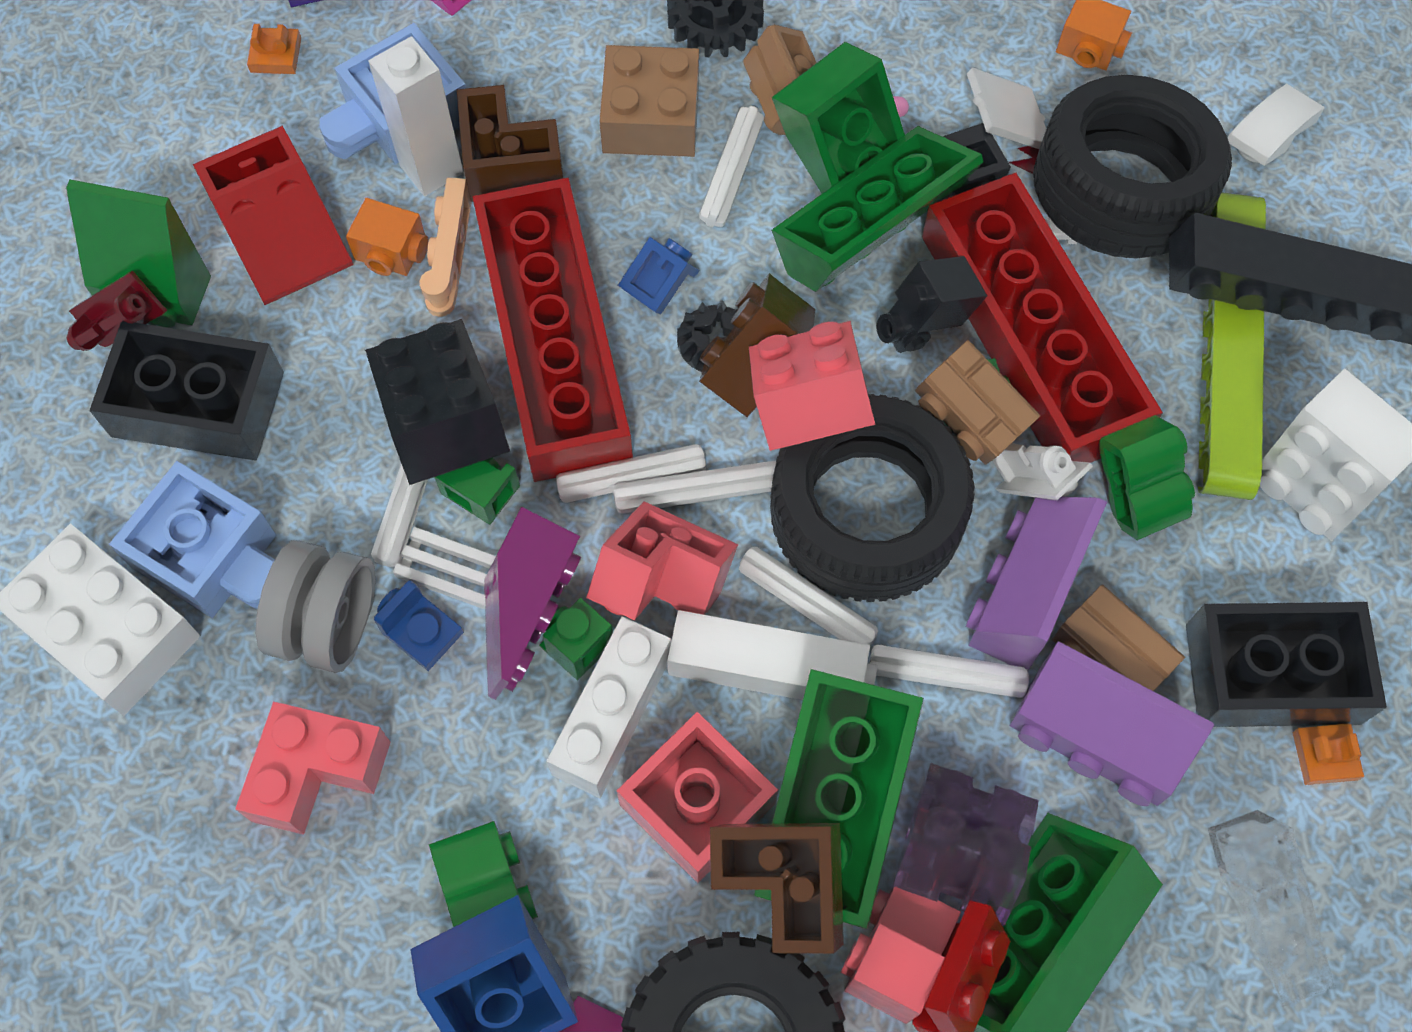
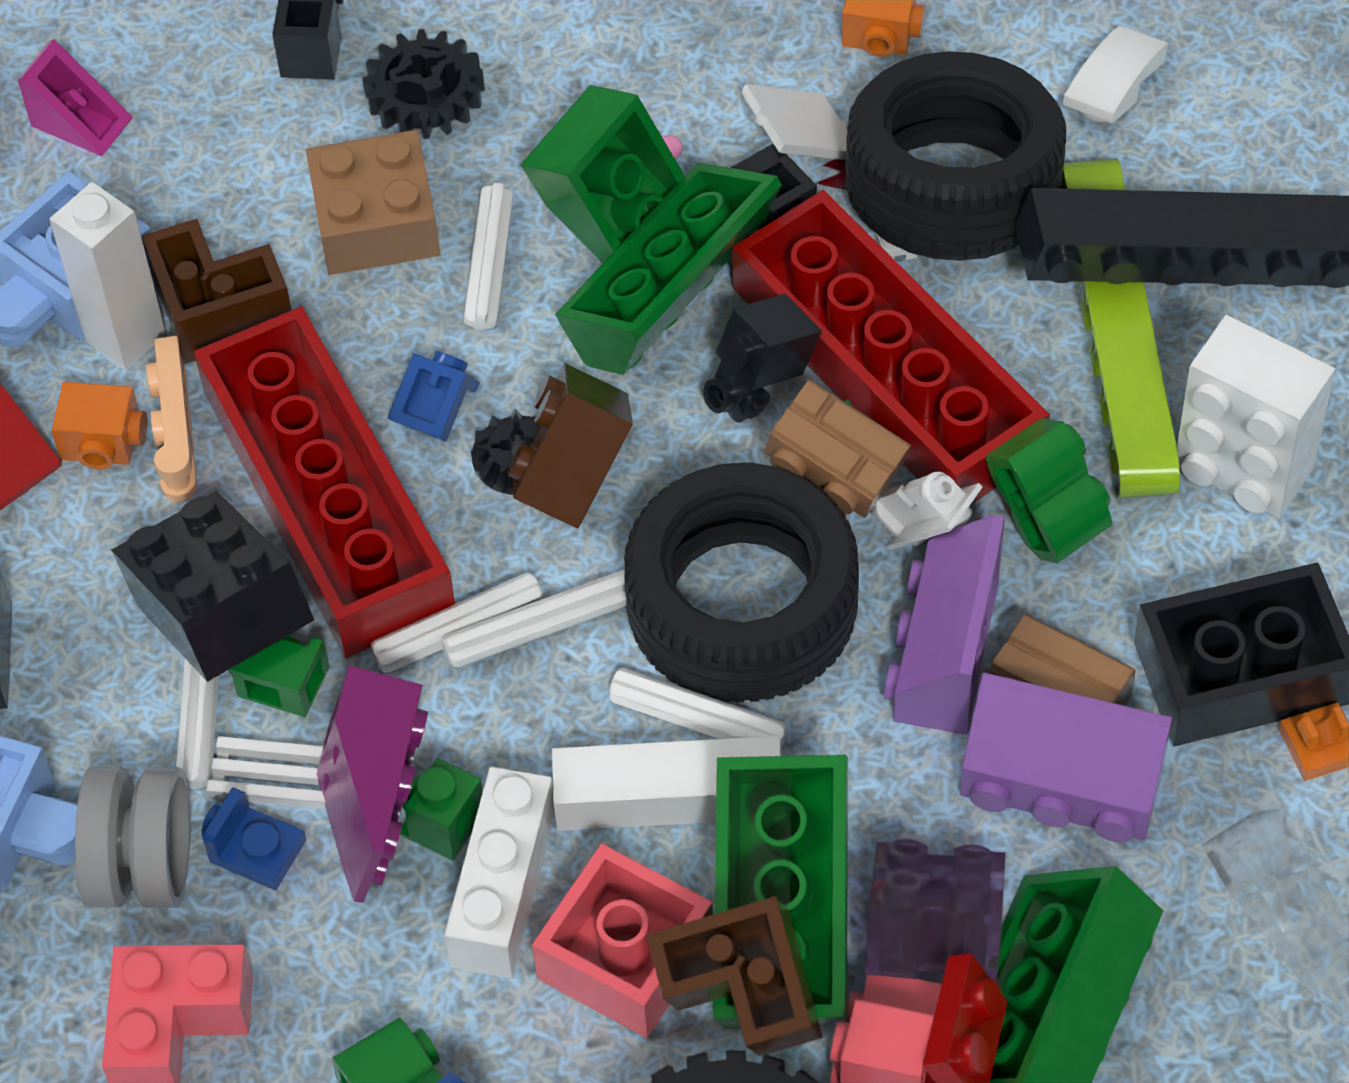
camera: 10 degrees left, 10 degrees down
(661, 559) = (519, 699): coral brick -> none
(774, 64) = (509, 131): medium nougat brick -> none
(809, 385) = (643, 464): coral brick -> none
(950, 671) = (889, 749): white axle -> none

